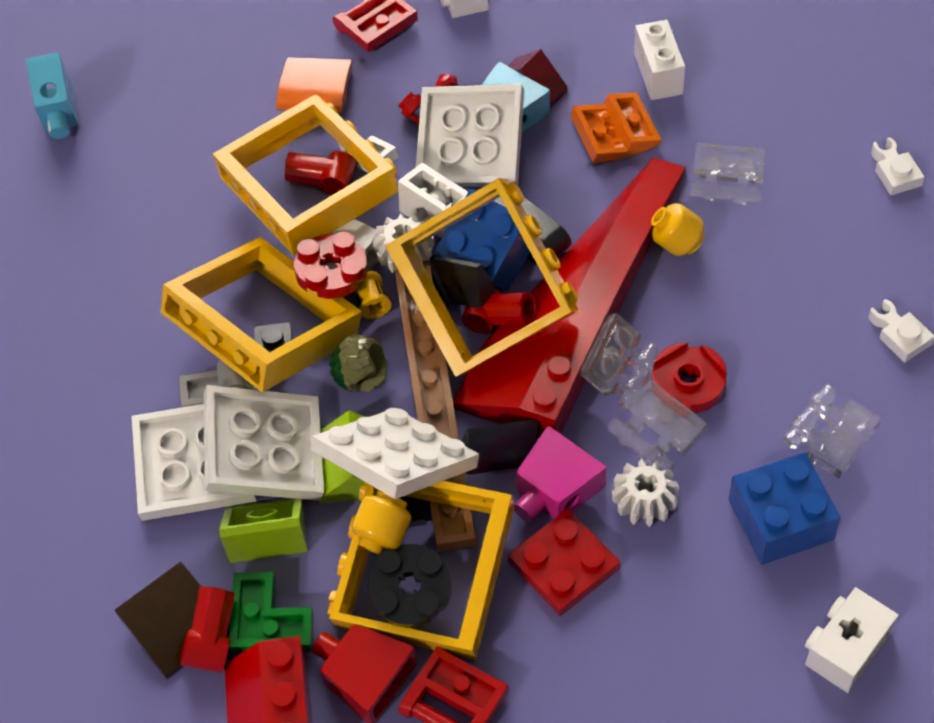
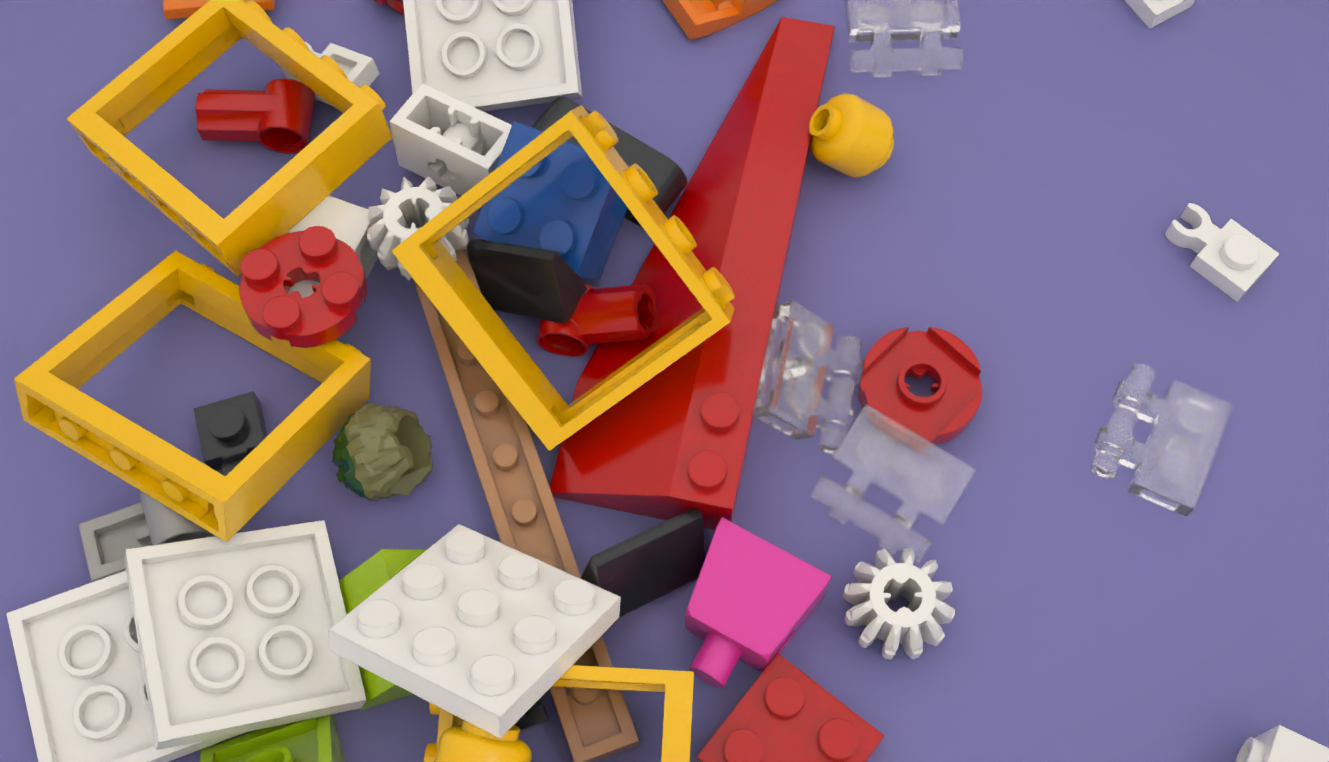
camera: 15 degrees left, 10 degrees up
(371, 296) = (382, 324): yellow bush -> none
(783, 508) = (1125, 593): blue brick -> none

